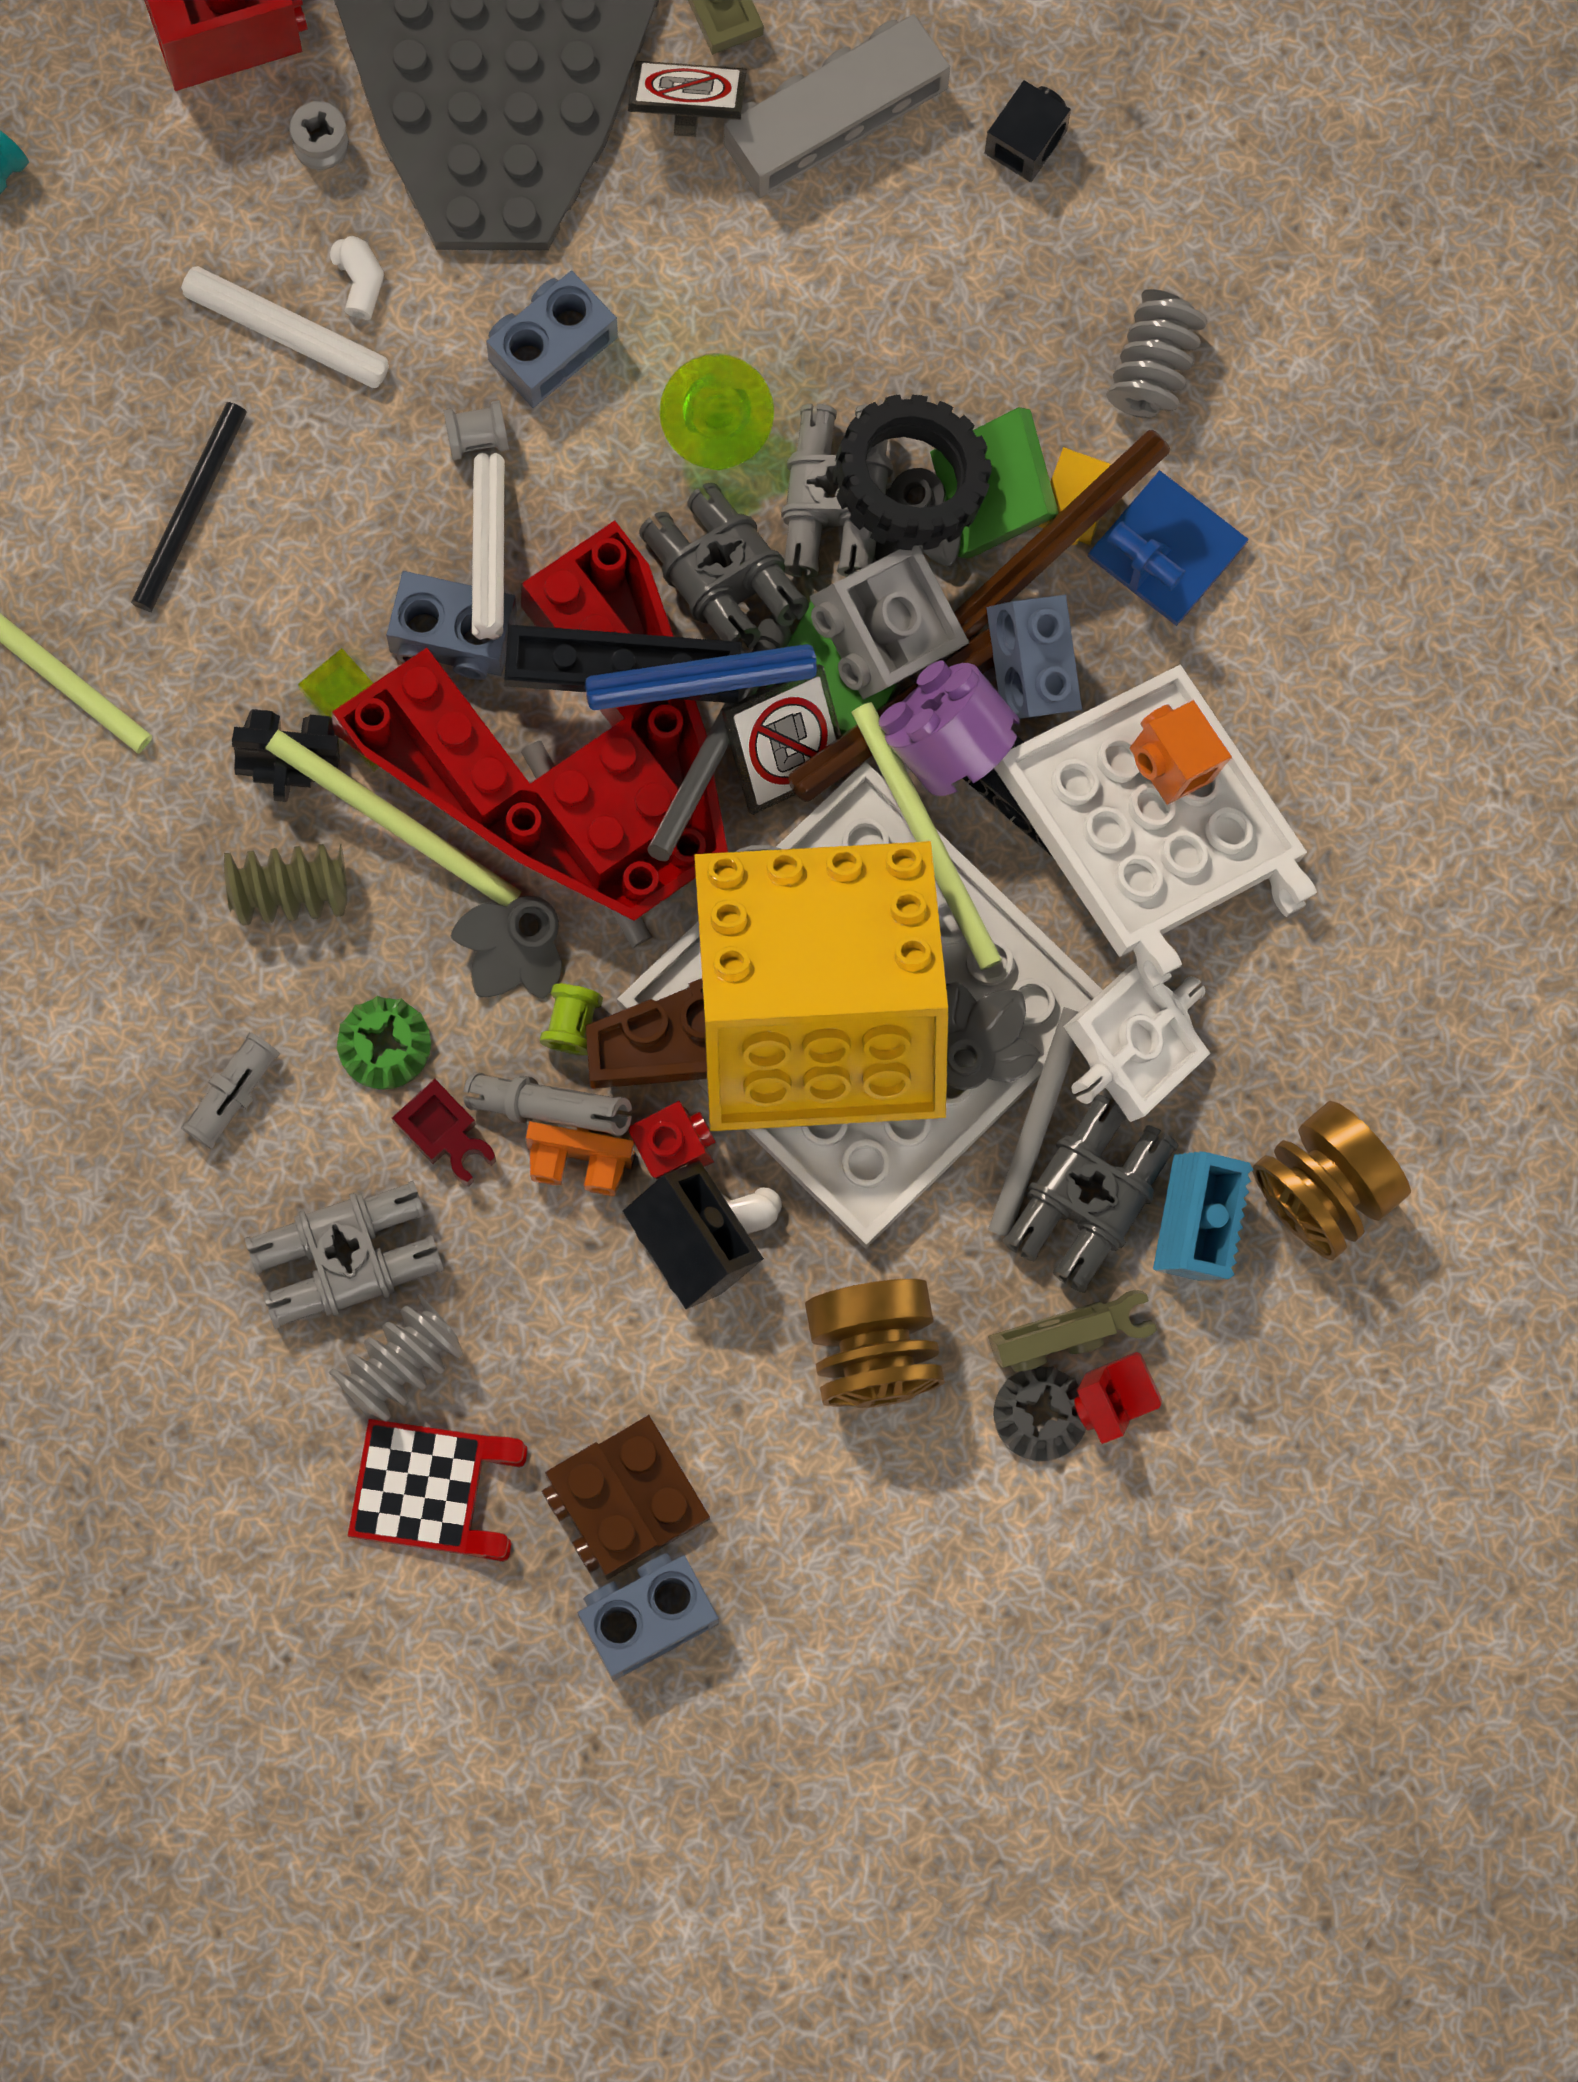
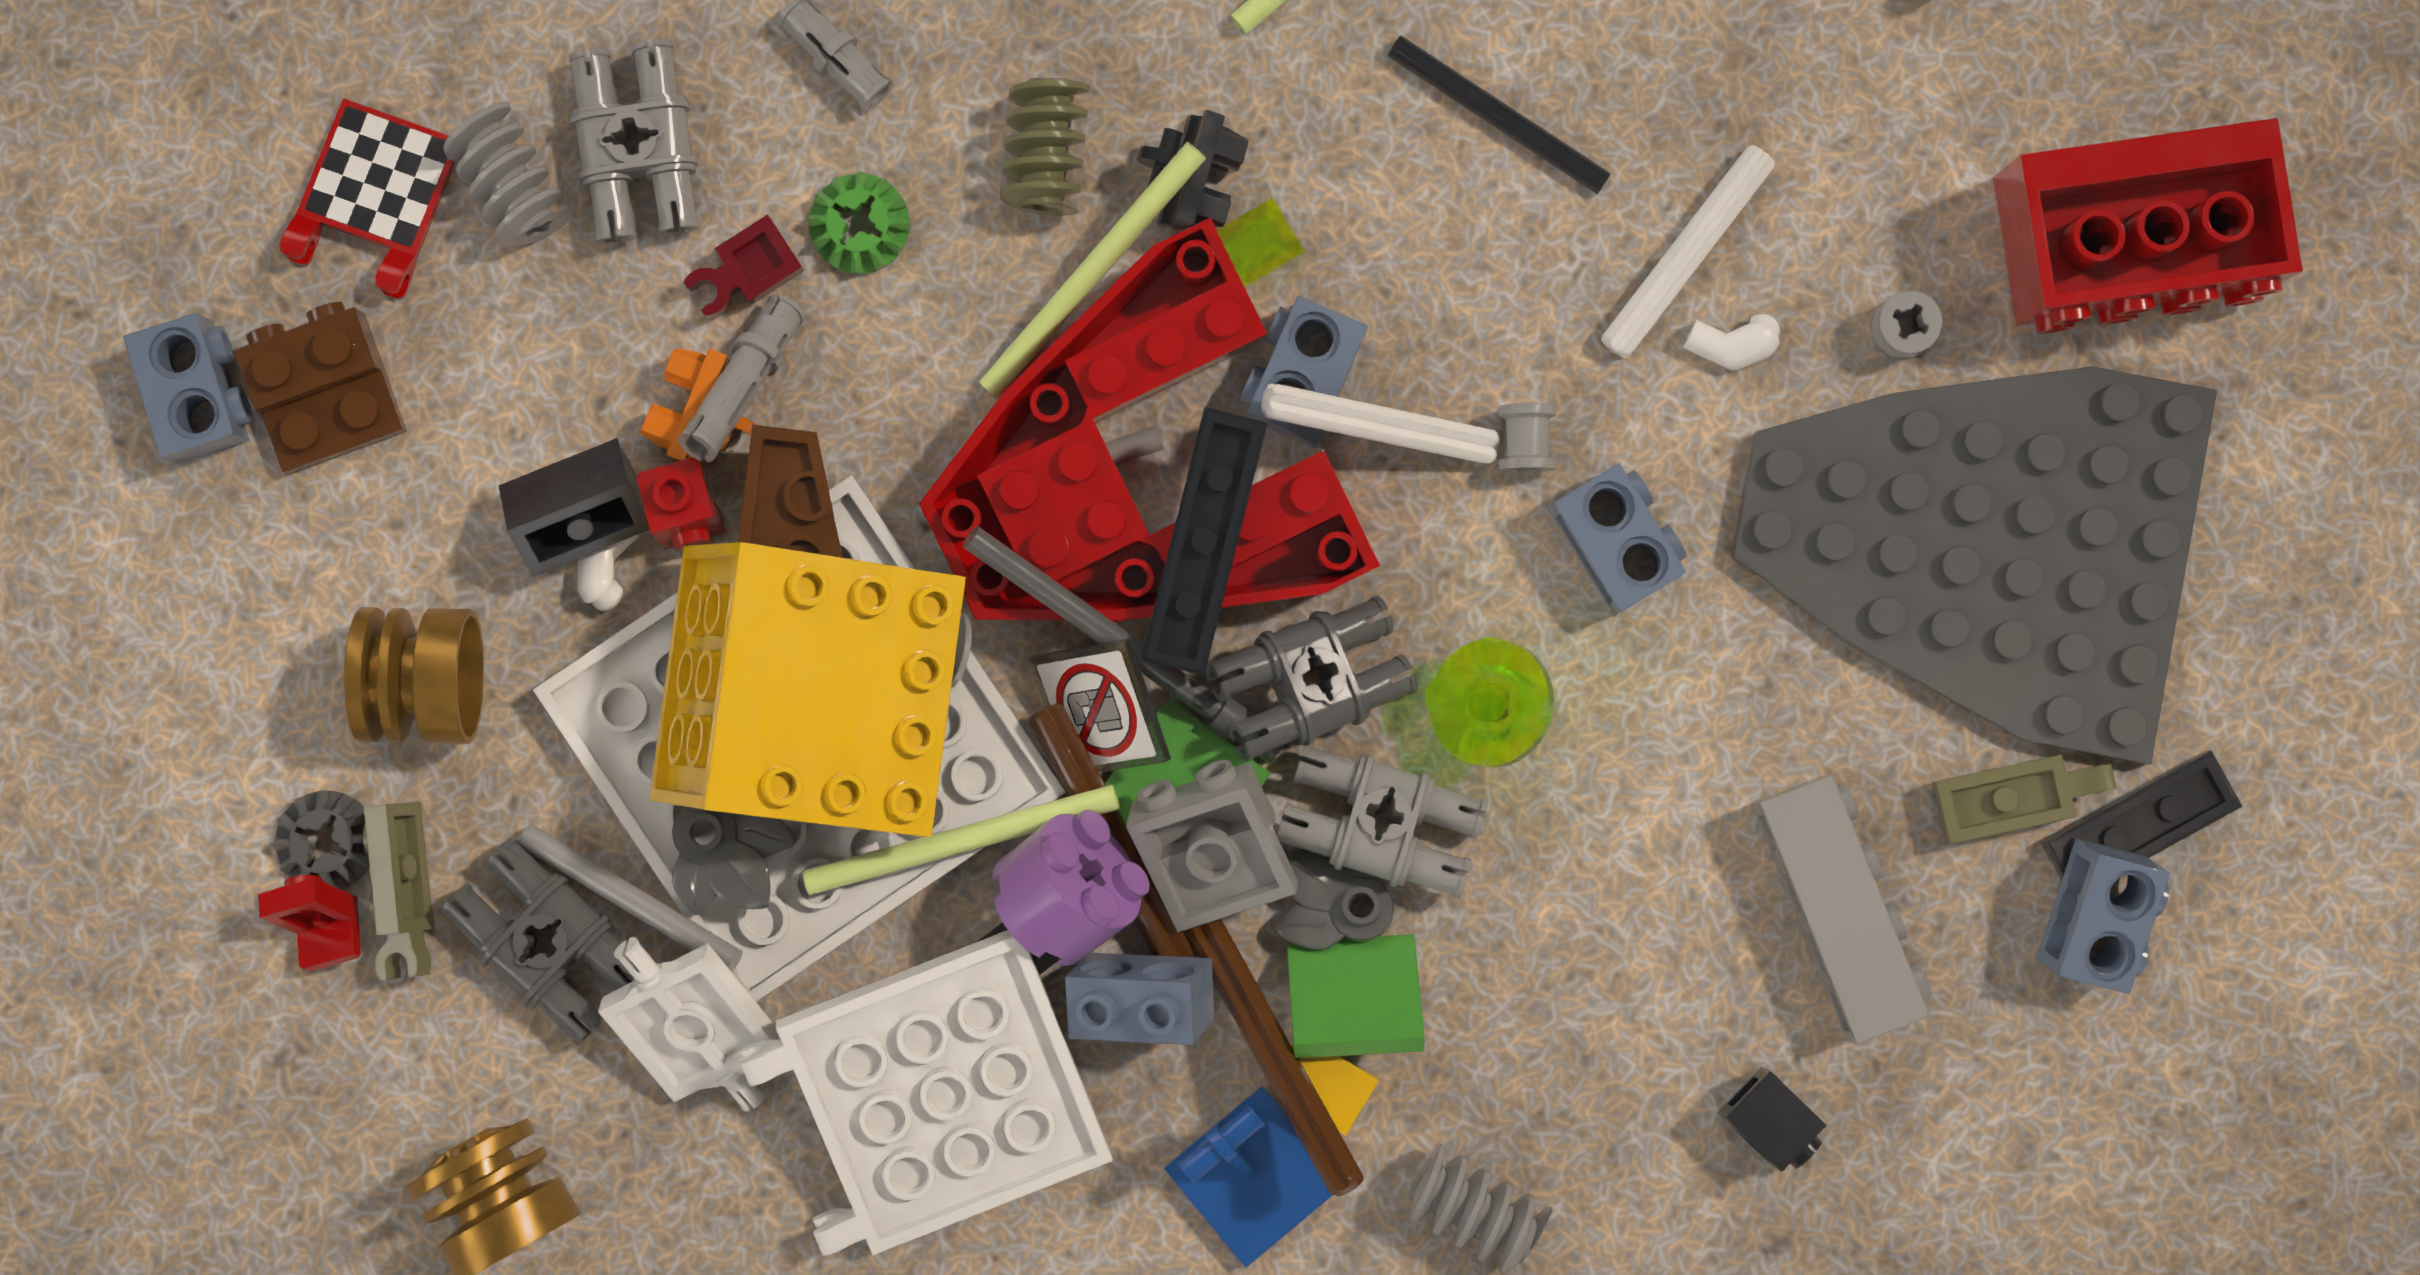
camera: 105 degrees right, 10 degrees up
(505, 953) = (930, 369): dark grey plate -> none
(570, 1015) = (842, 423): lime bush -> none
(687, 92) = (1883, 742): piece -> none
(701, 677) = (1164, 621): blue axle -> none
(923, 422) = (1417, 949): black tyre -> none
(1178, 751) = (995, 1133): orange brick -> none
(1202, 1216) = (485, 1053): dark azure brick -> none

